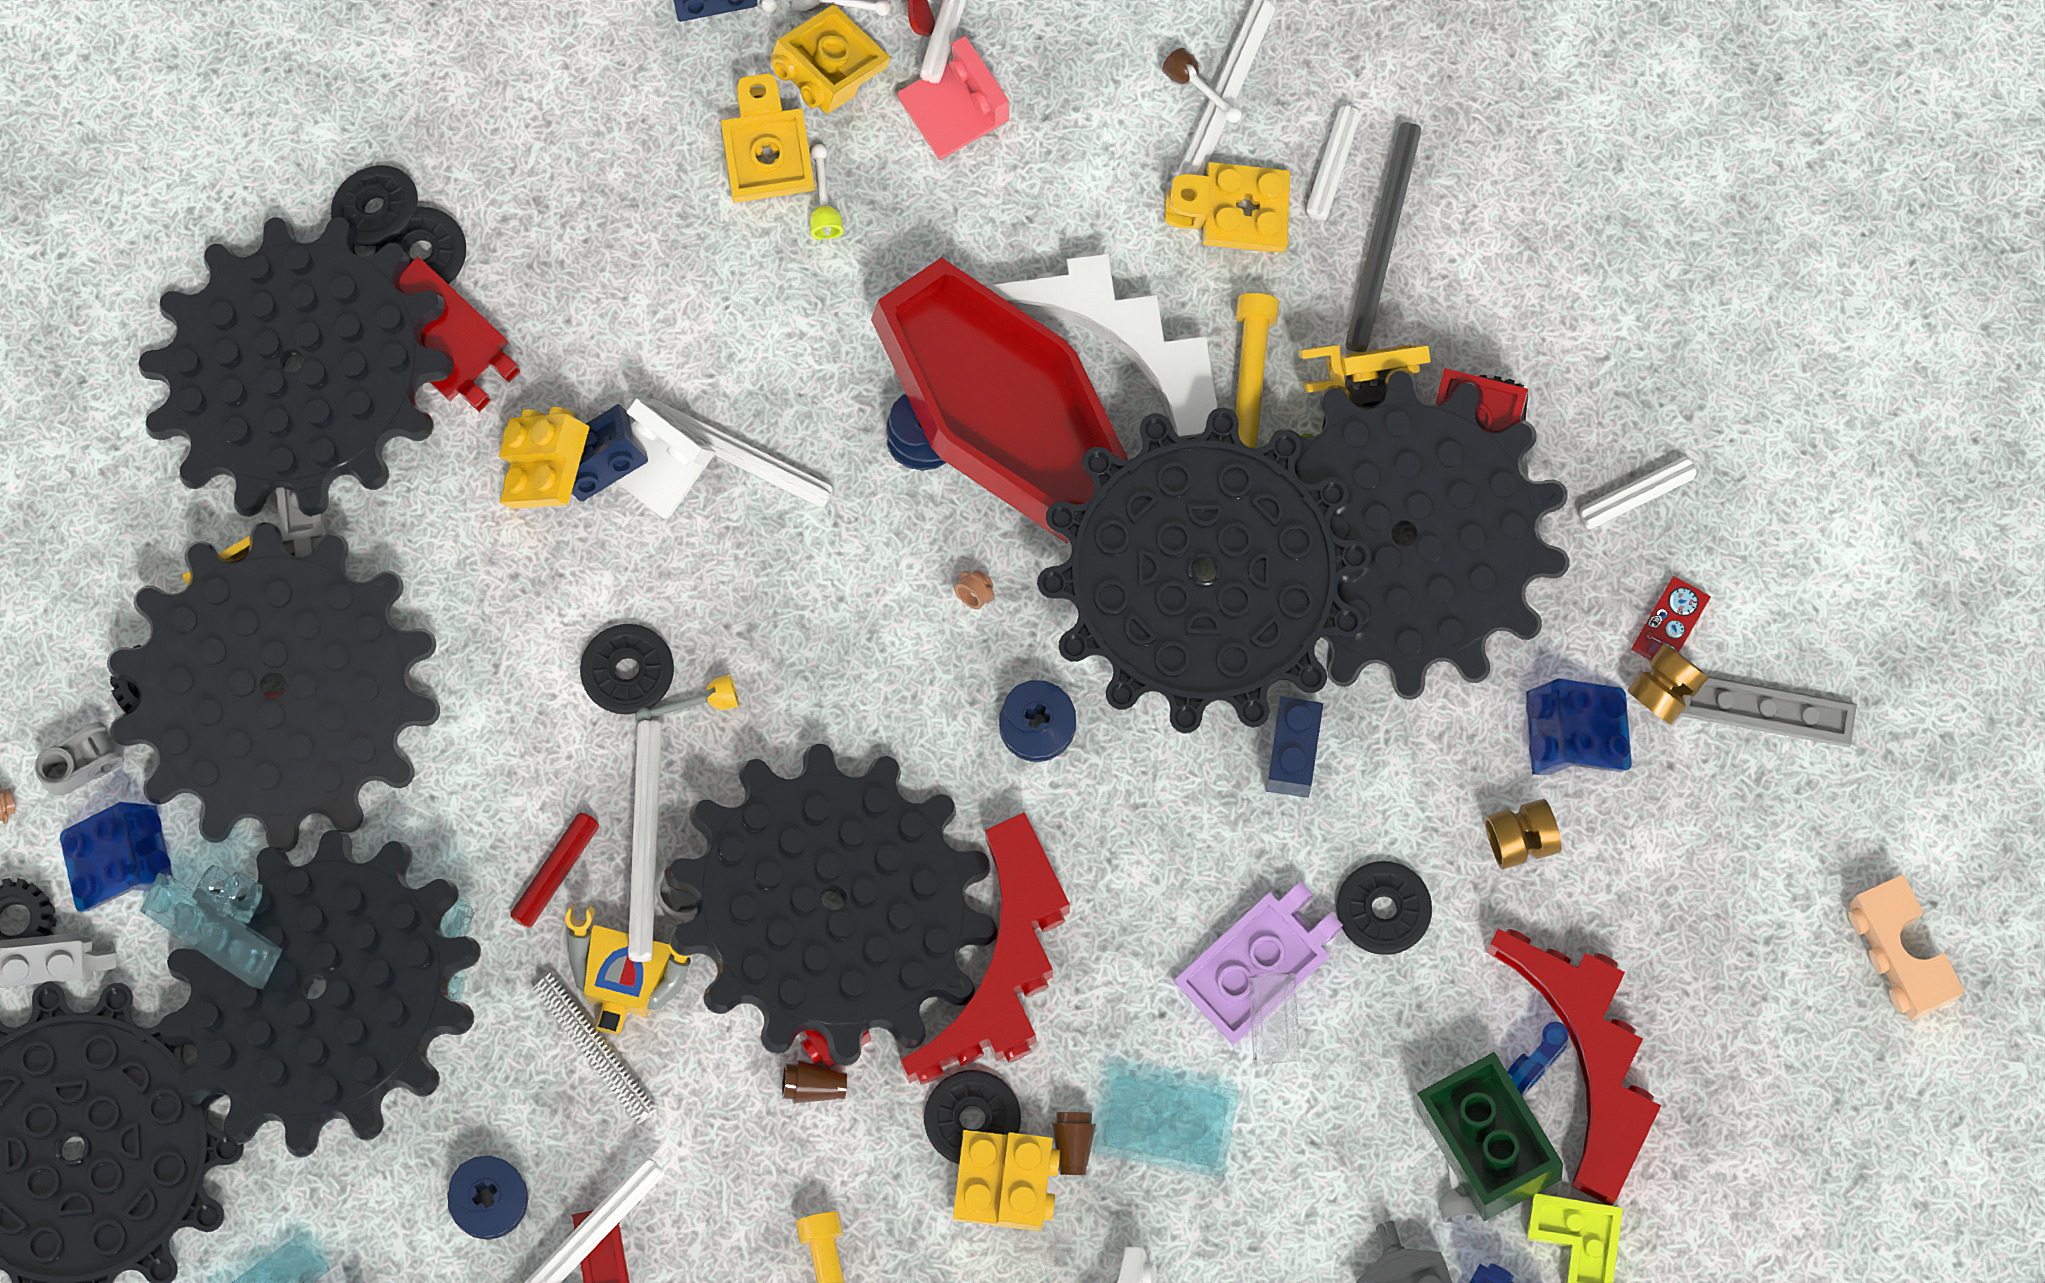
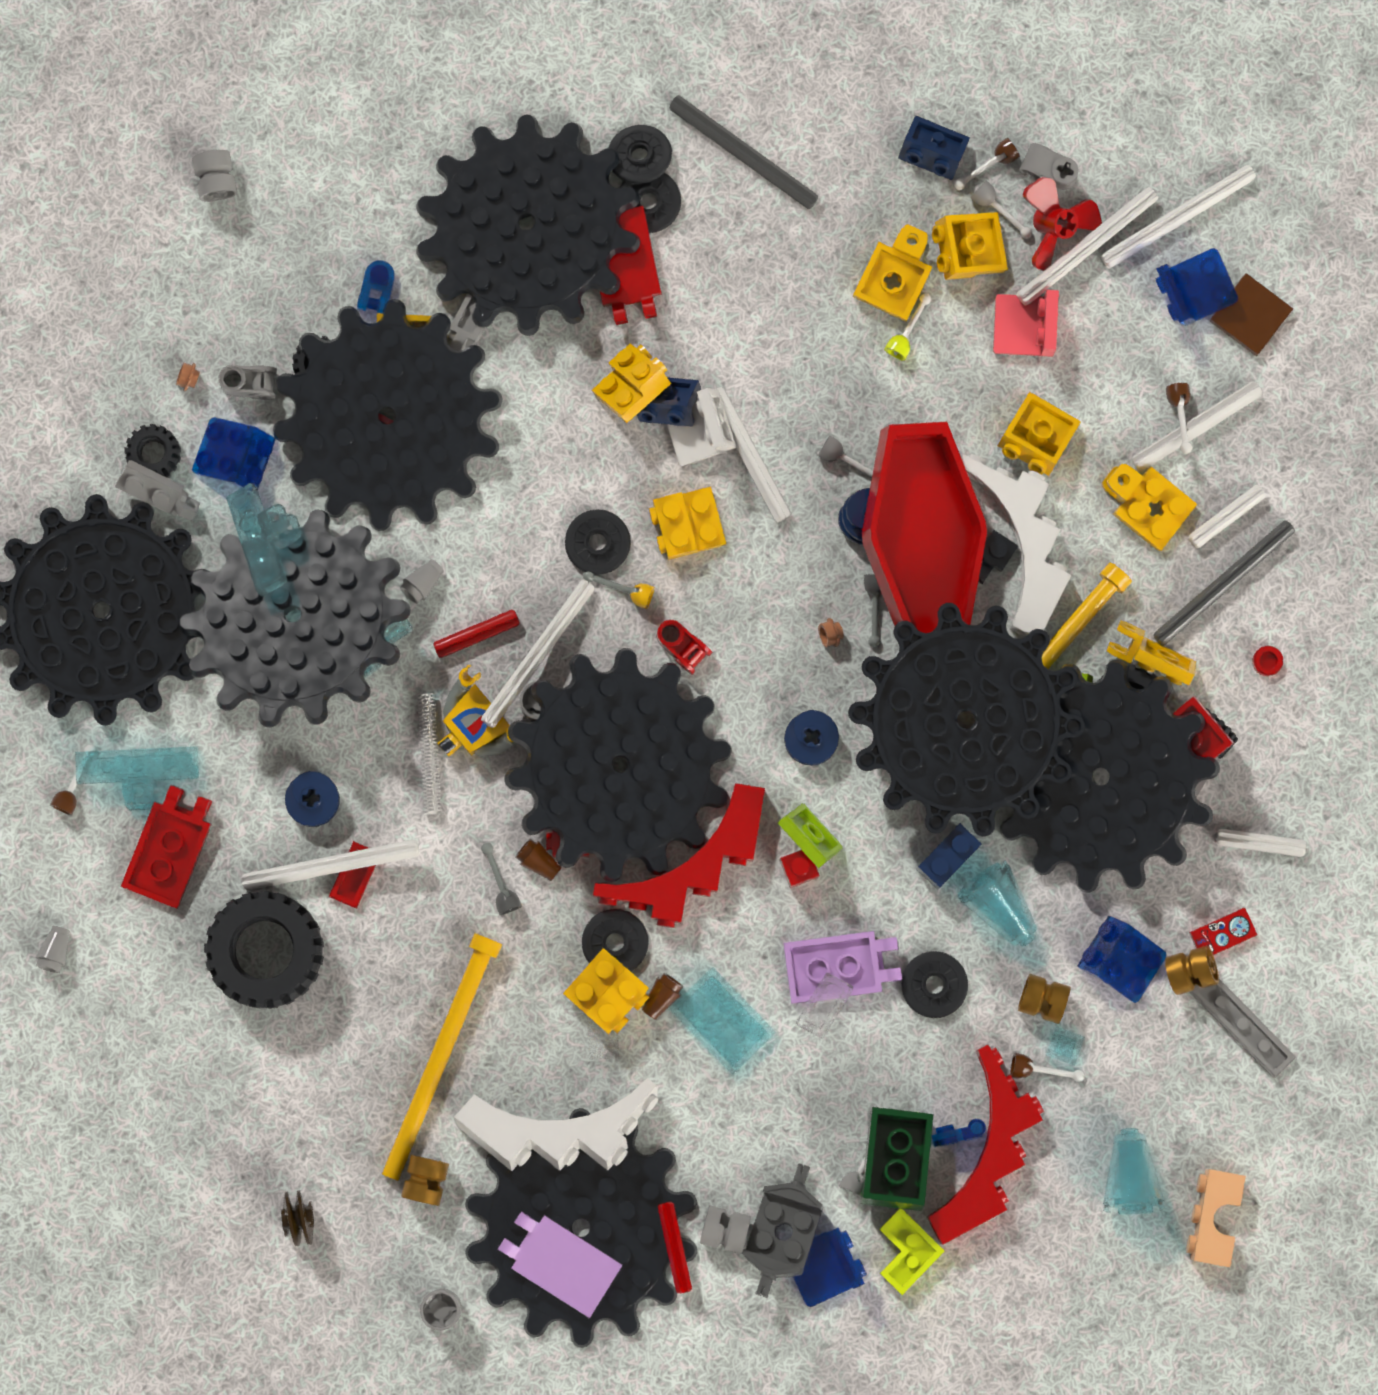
camera: 30 degrees right, 10 degrees up
(158, 540) = (377, 277): none -> clear blue plate
(447, 852) = (420, 582): none -> light grey cone
(494, 126) = (743, 152): none -> dark grey axle
(718, 577) = (687, 523): none -> yellow plate
(805, 1155) = (506, 898): none -> hinge
(812, 719) = (683, 646): none -> red piece
(832, 384) = (833, 450): none -> light grey hinge
(990, 505) = (872, 587): none -> hinge
(1055, 212) = (1038, 434): none -> yellow plate
(1104, 373) = (996, 554): none -> black plate
(1116, 829) = (810, 835): none -> lime tile
(1129, 878) = (798, 868): none -> red brick
(1395, 759) = (1001, 904): none -> clear light blue cone
(1495, 289) = (1267, 661): none -> red tile
(1559, 929) = (1023, 1066): none -> hinge
(1586, 874) = (1065, 1046): none -> clear light blue tile
(1775, 967) = (1132, 1176): none -> clear light blue cone

